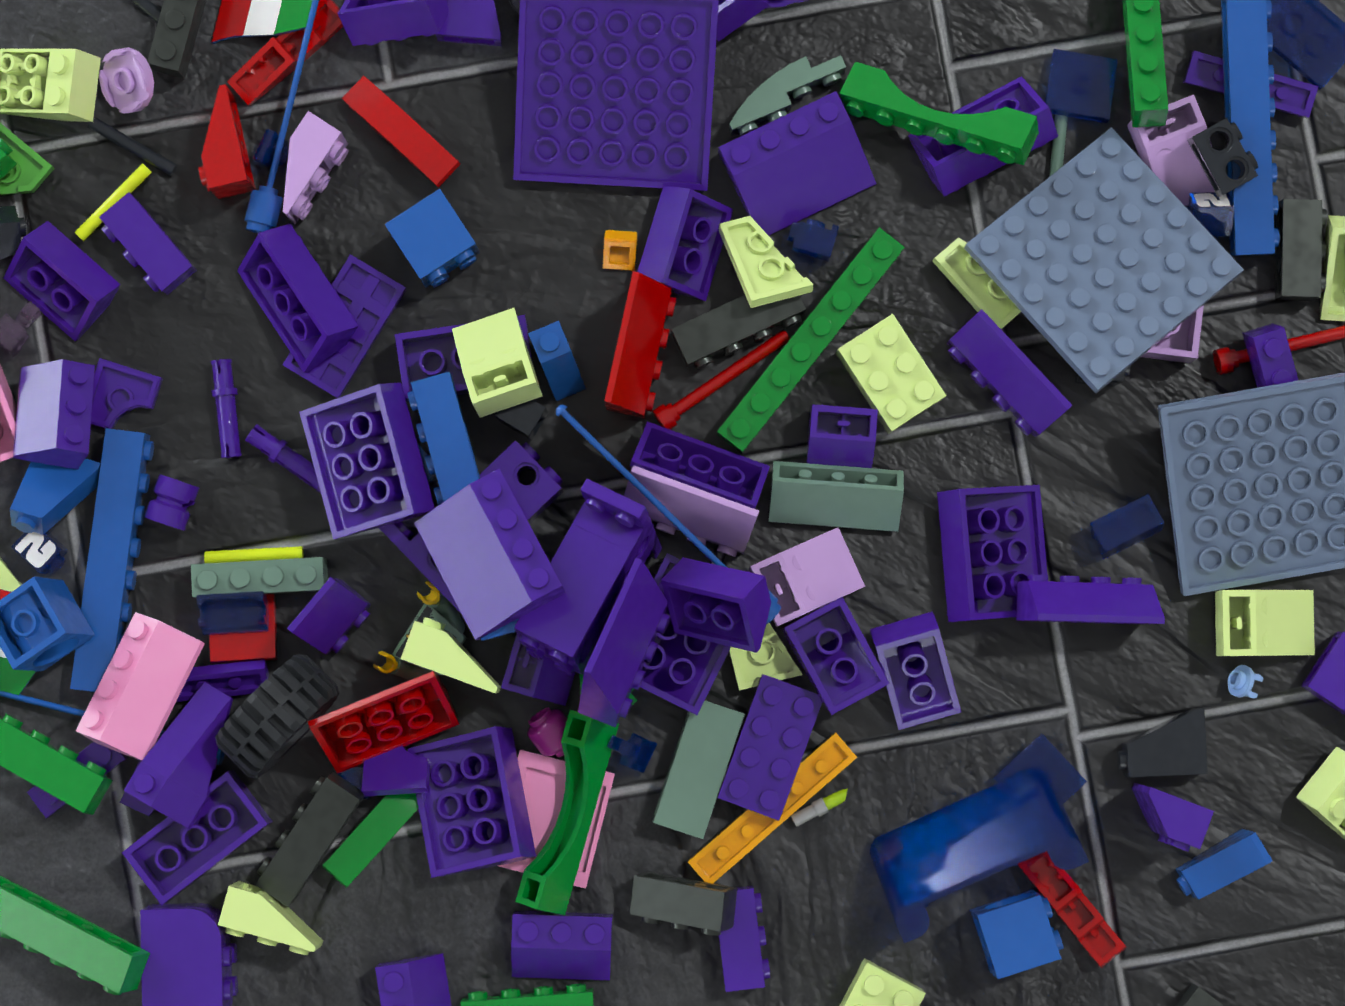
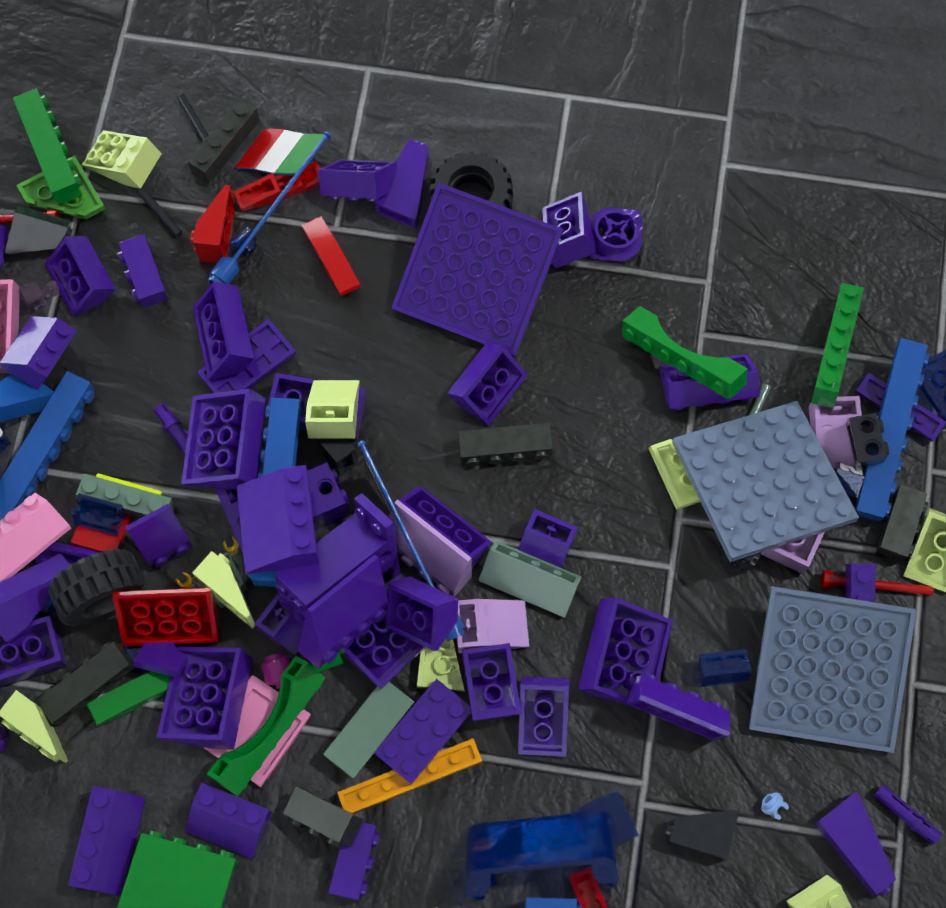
camera: 25 degrees right, 15 degrees down
(121, 390) = (86, 355): dark purple tile -> none
(126, 80) = (171, 170): lavender tile -> none
(128, 185) = (148, 234): neon yellow bar -> none
(171, 502) = (89, 433): dark purple wheel -> none
(226, 408) = (152, 379): dark purple pin -> none
(311, 156) = (266, 252): lavender slope -> none
(433, 239) = (324, 324): blue brick -> none
(557, 361) = (375, 424): blue slope -> none
(619, 250) = (443, 375): light orange slope -> none
(635, 752) = (330, 702): clear blue plate -> none
(638, 346) = (431, 433): red slope -> none
(670, 414) = (438, 488): red piece -> none
(759, 265) = (531, 410): yellowish green wing -> none
(772, 96) = (577, 312): sand green slope -> none
(797, 164) = (579, 359): dark purple slope -> none
(810, 340) = (548, 472): green brick -> none
(813, 238) = (574, 408): clear blue brick -> none
(819, 807) = (444, 788): light grey piece -> none
(890, 373) = (595, 511): yellowish green brick -> none
(1007, 374) = (675, 536): dark purple slope -> none
(1081, 85) = (785, 371): clear blue plate -> none
(1175, 819) = (691, 877): dark purple slope -> none
(1264, 622) = (801, 767): yellowish green slope -> none

